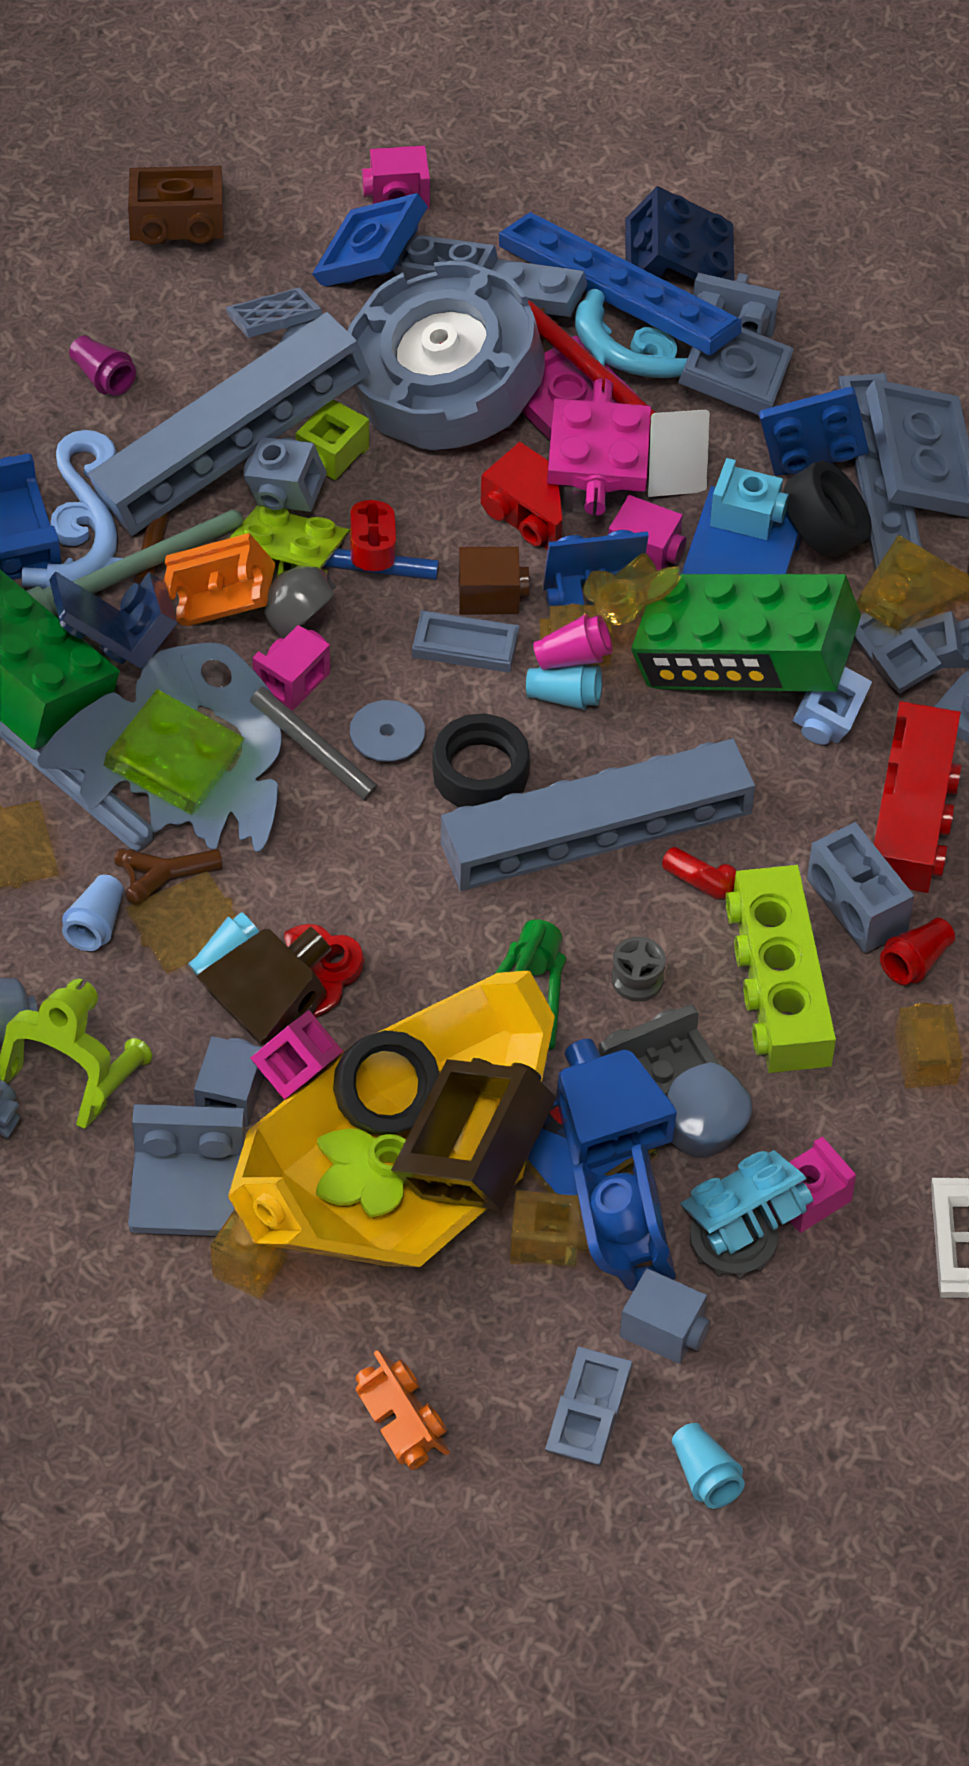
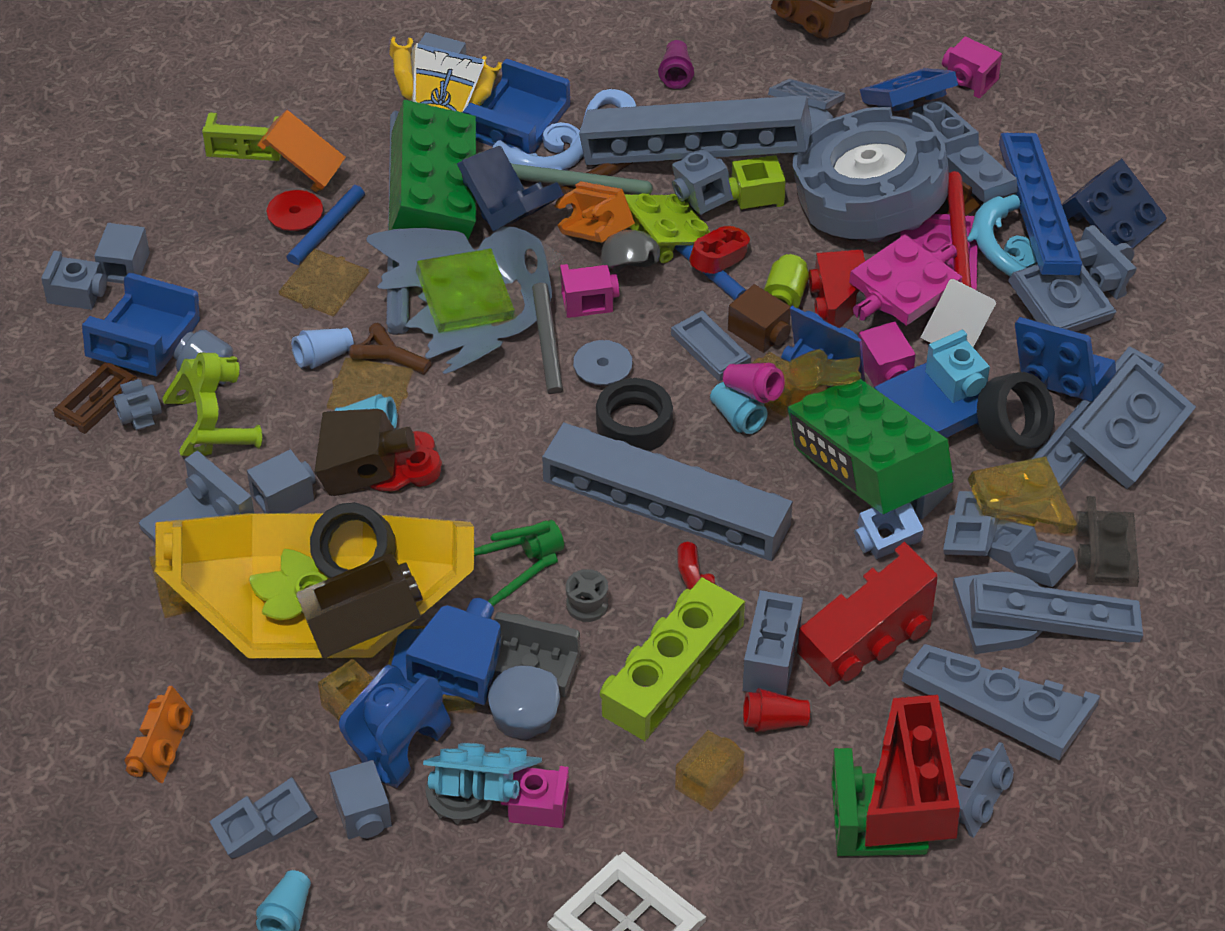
camera: 45 degrees right, 5 degrees down
(296, 1054) = (321, 488): dark pink brick -> none
(472, 521) = (788, 279): none -> lime brick

